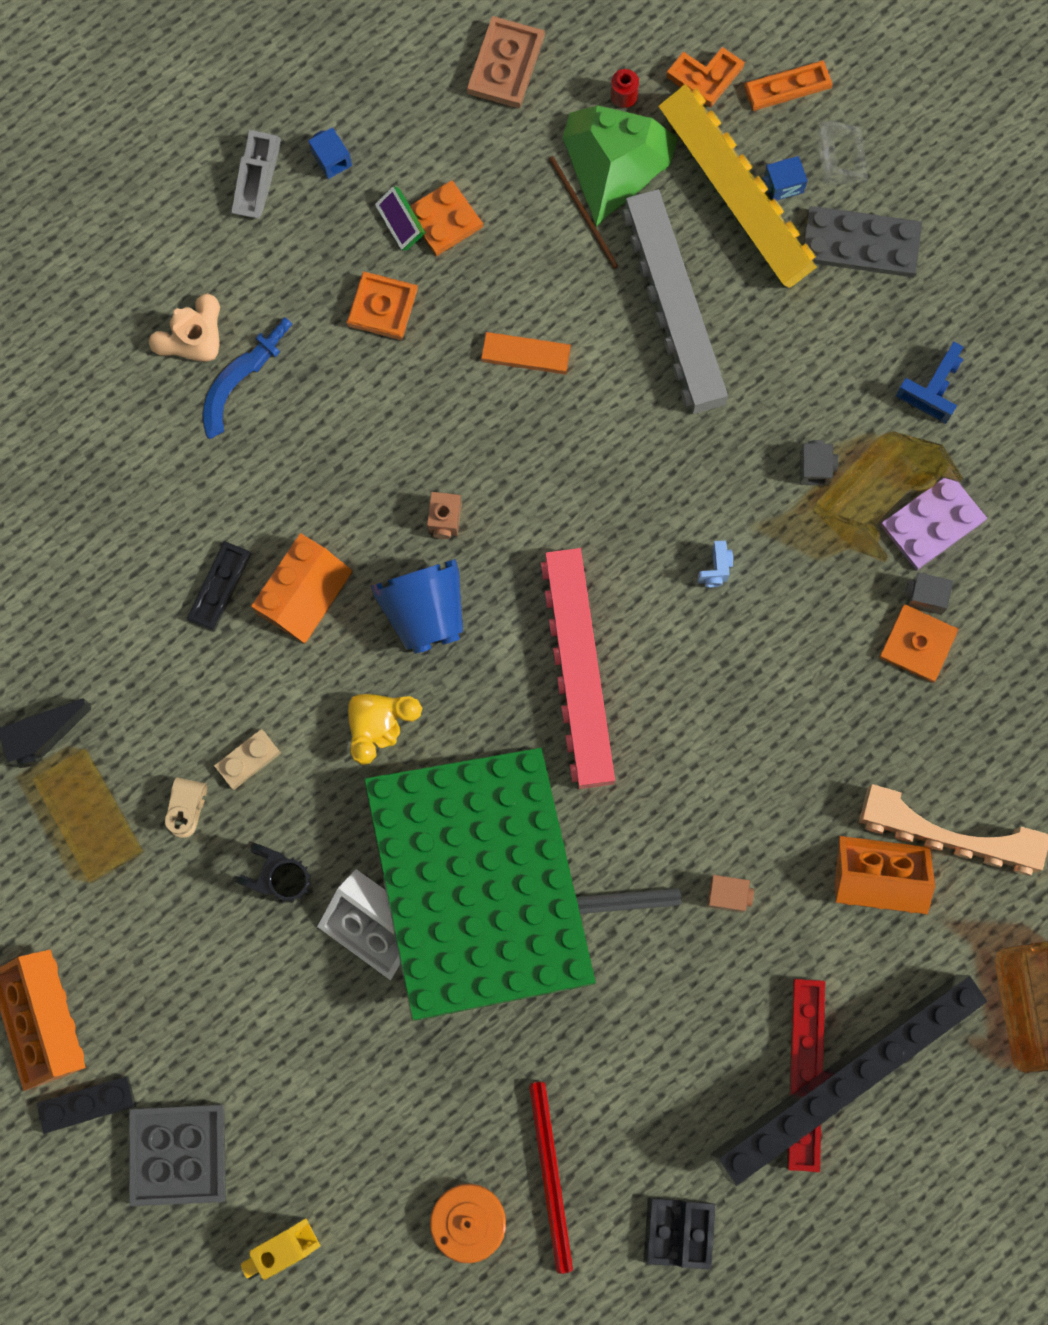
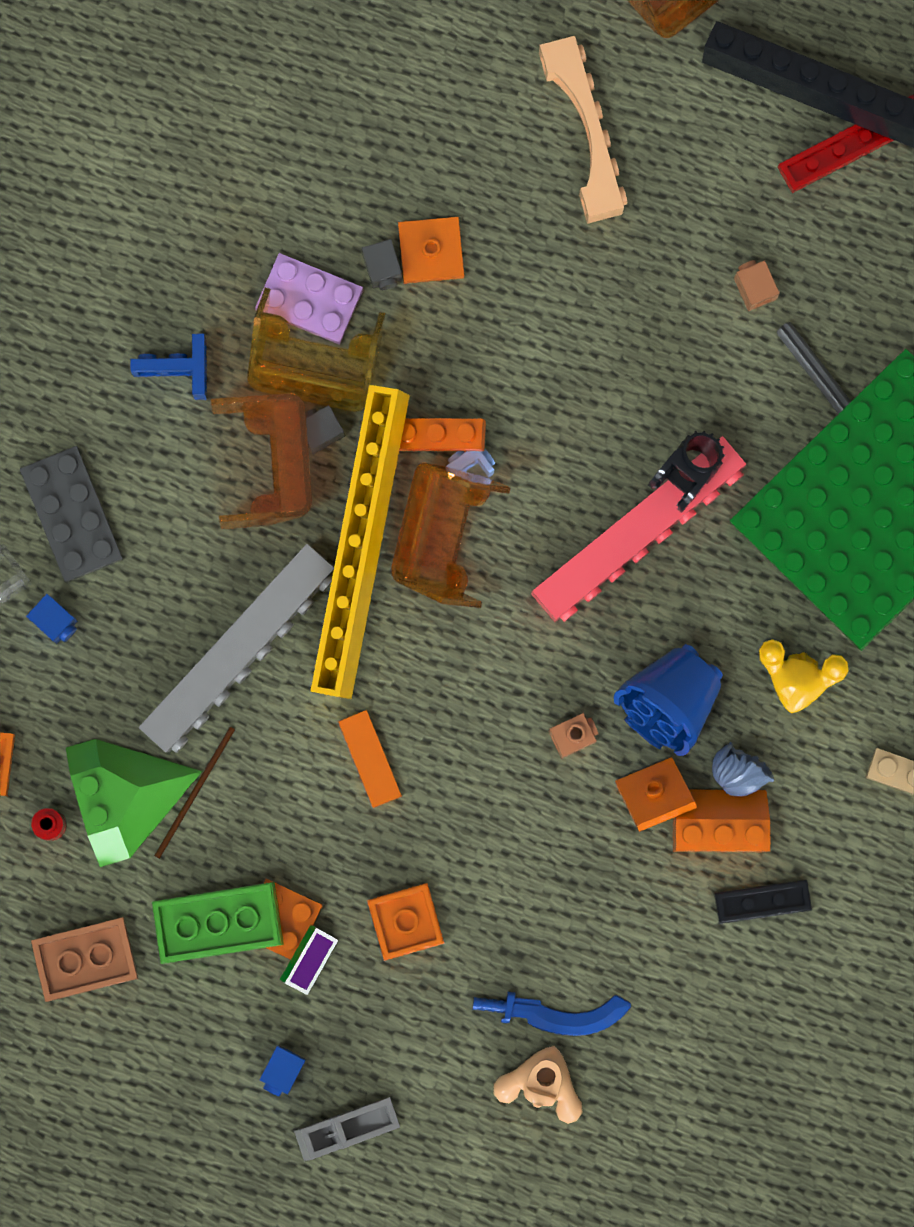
camera: 130 degrees left, 5 degrees up
(331, 627) = (739, 772): none -> sand blue hair
(355, 548) = (655, 794): none -> orange plate
(470, 168) = (217, 923): none -> bright green tile
(611, 715) = (699, 442): none -> black piece
(671, 498) = (434, 530): none -> clear orange windscreen
(705, 435) = (360, 542): none -> yellow brick
(737, 185) = (87, 658): yellow brick -> none
(762, 541) = (443, 434): none -> orange plate
(776, 404) = (285, 421): none -> clear orange windscreen
(884, 875) = (657, 166): orange slope -> none

